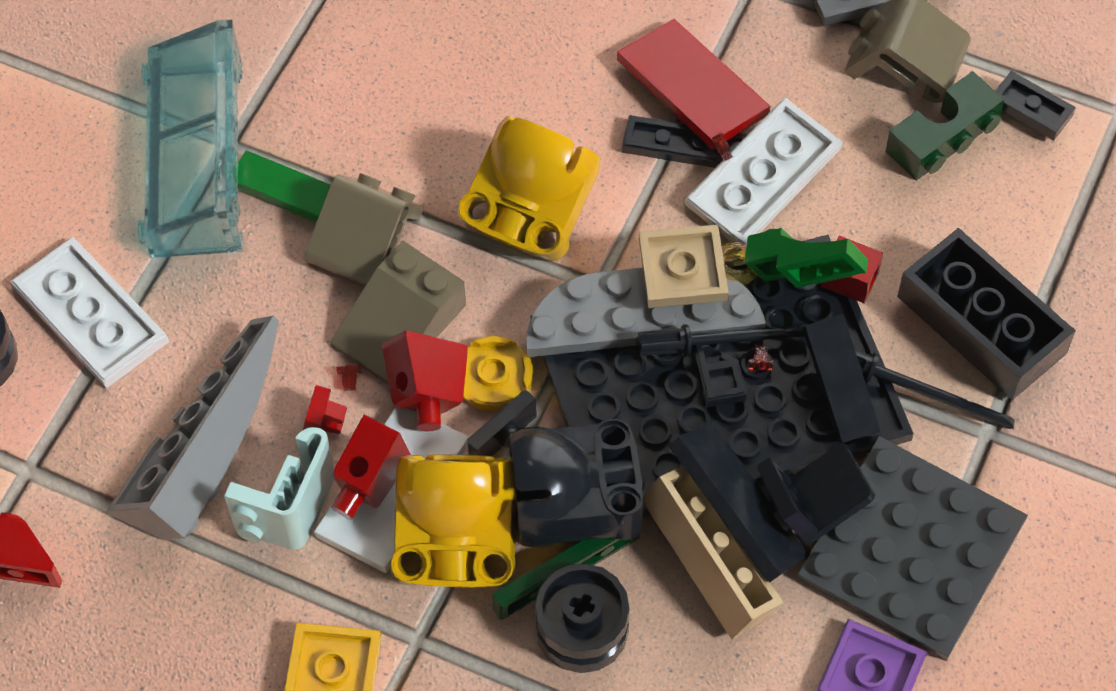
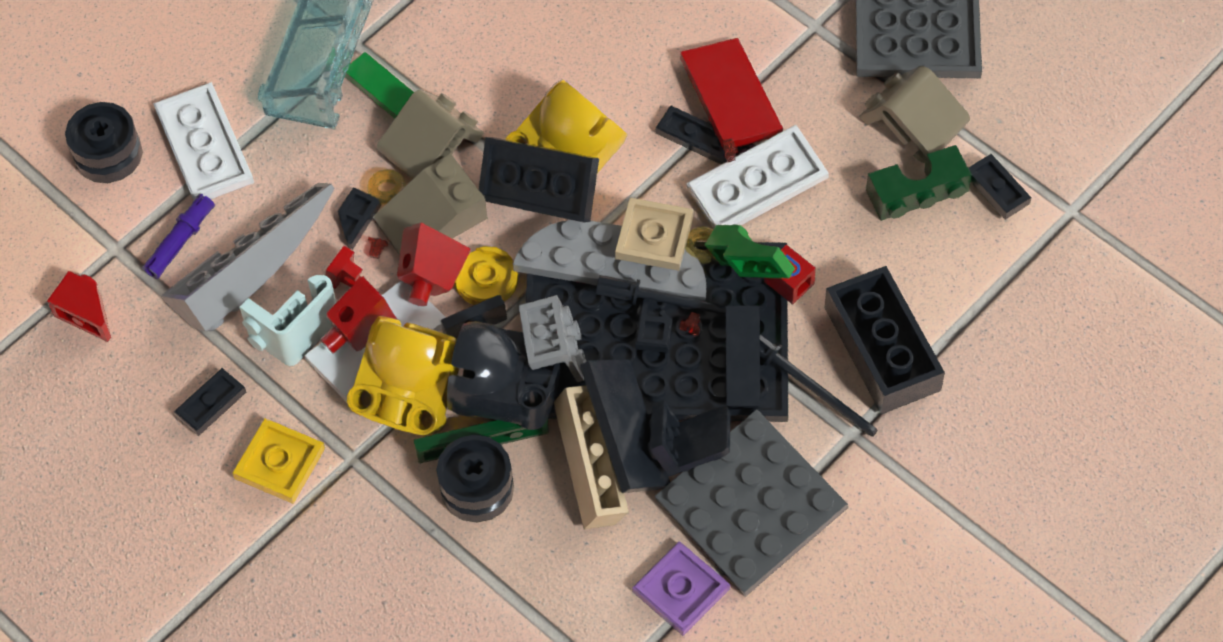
camera: 20 degrees right, 0 degrees up
(107, 416) = (186, 226): none -> dark purple pin
(219, 623) = (210, 401): none -> black plate
(309, 344) = (357, 214): none -> black tile
(332, 288) = (385, 176): none -> clear yellow piece
(520, 240) = (538, 179): none -> black plate
(614, 419) = (551, 335): none -> light grey bracket

